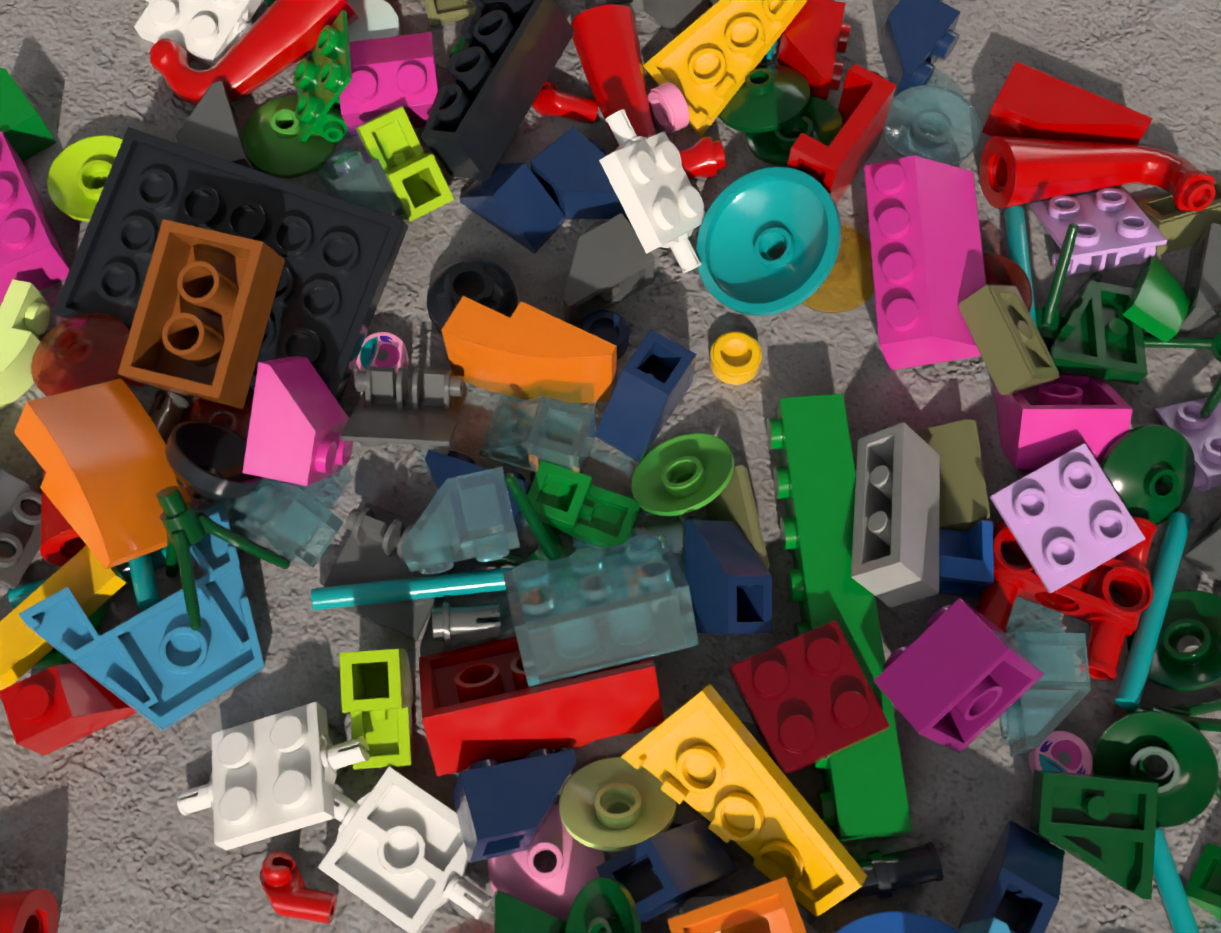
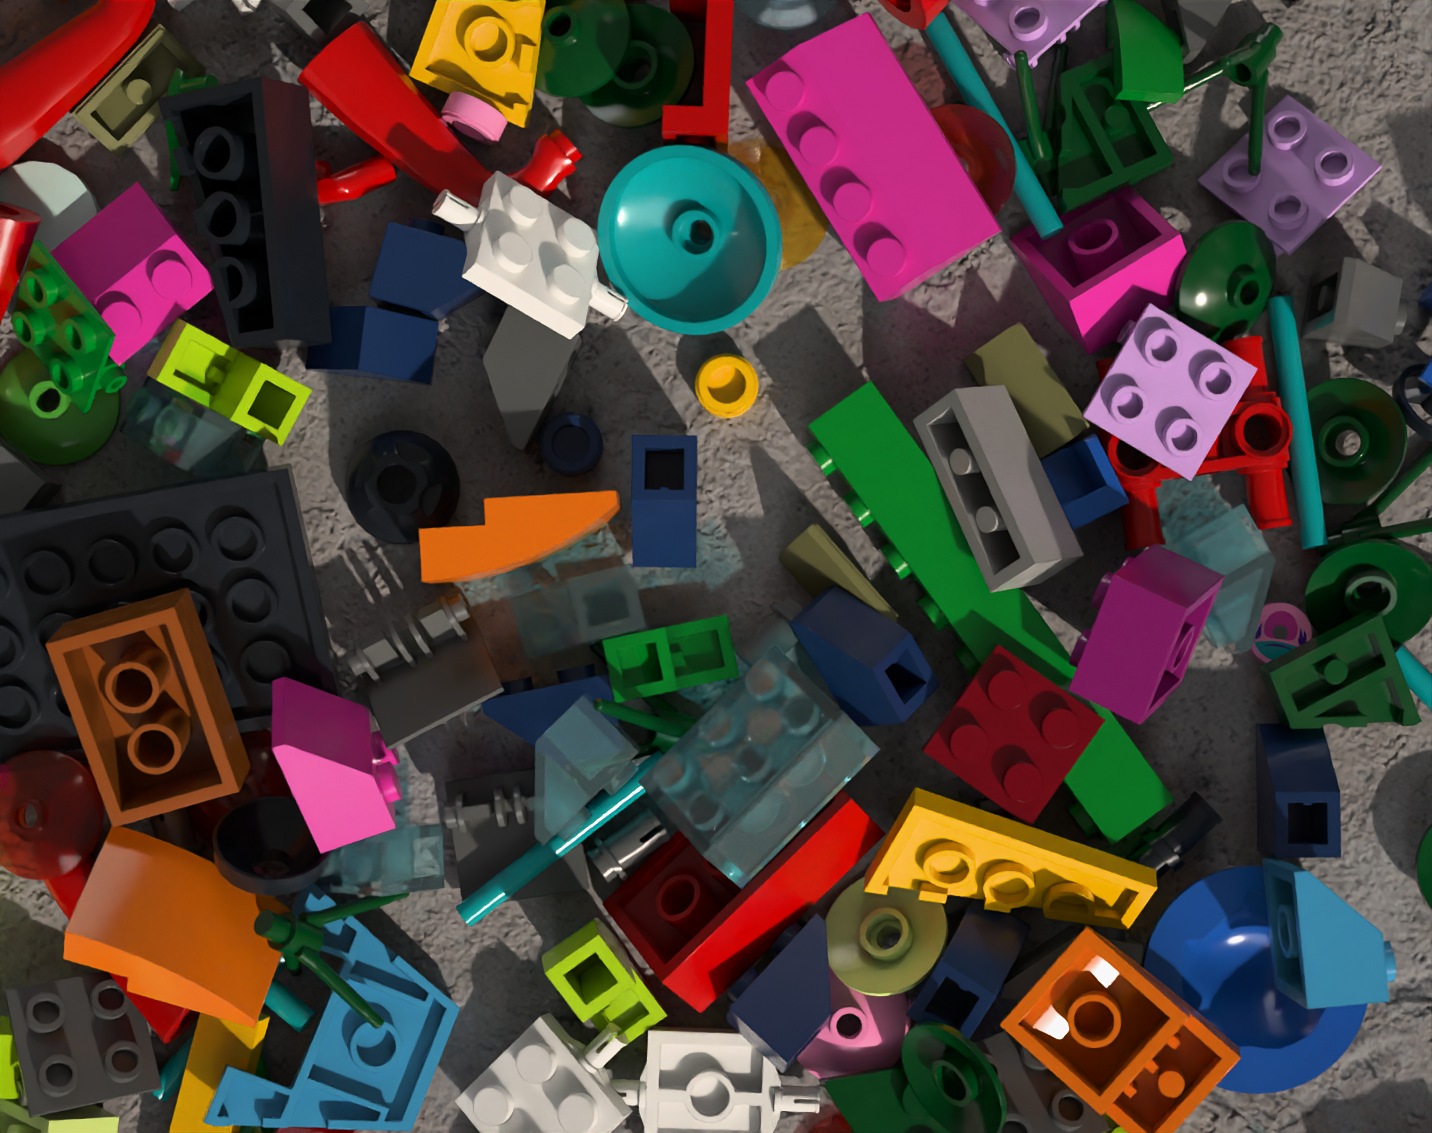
camera: 30 degrees left, 20 degrees up
(383, 350) = (353, 612): tile -> none
(682, 474) = (731, 558): bright green dish -> none
(1007, 339) = (1012, 216): olive slope -> none

